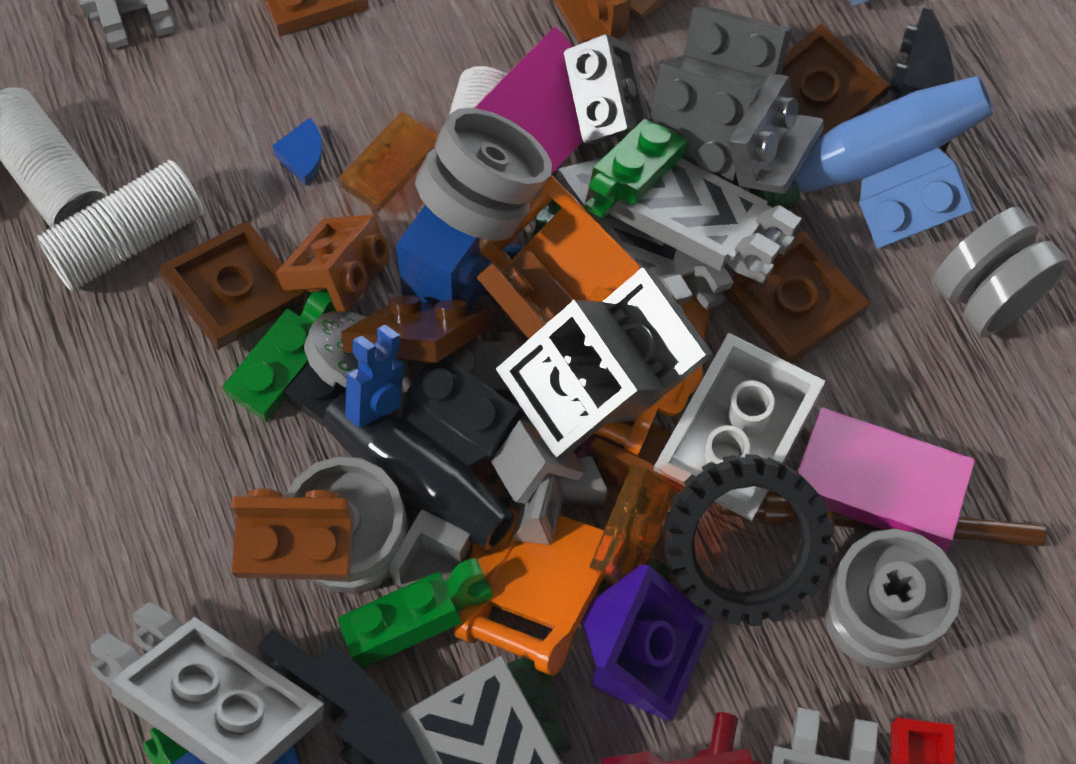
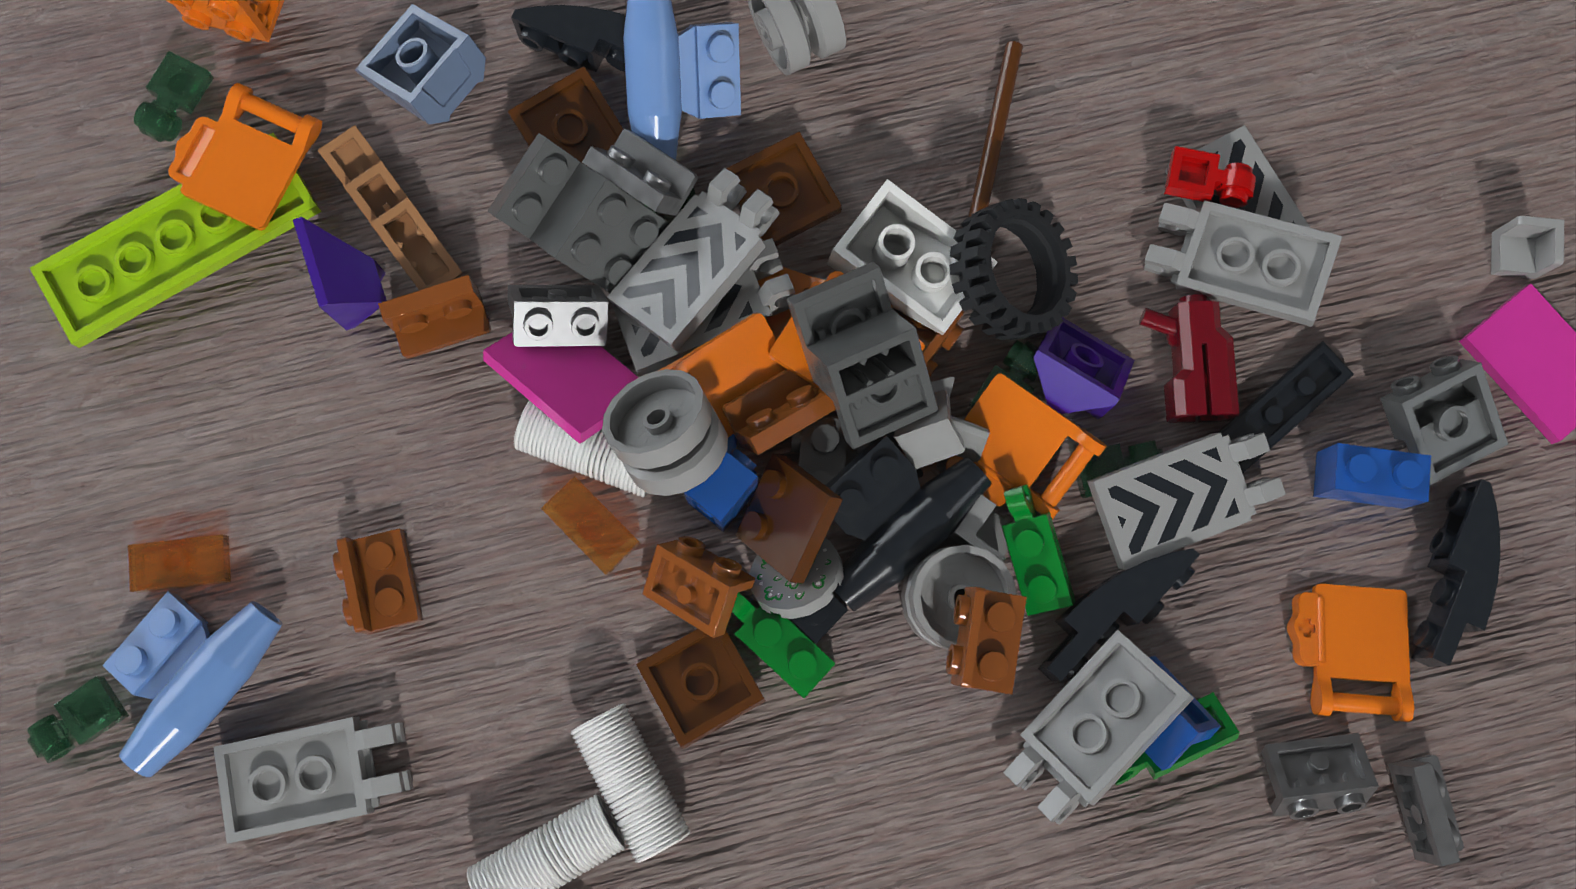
camera: 85 degrees left, 15 degrees up
(301, 151) = (563, 607): blue tile -> none
(377, 382) = (847, 554): blue plate -> none
(632, 524) = (997, 359): clear orange plate -> none
(634, 166) = (653, 301): green plate -> none
(886, 477) = (960, 152): dark pink tile -> none
(891, 599) = (1068, 168): light grey wheel -> none

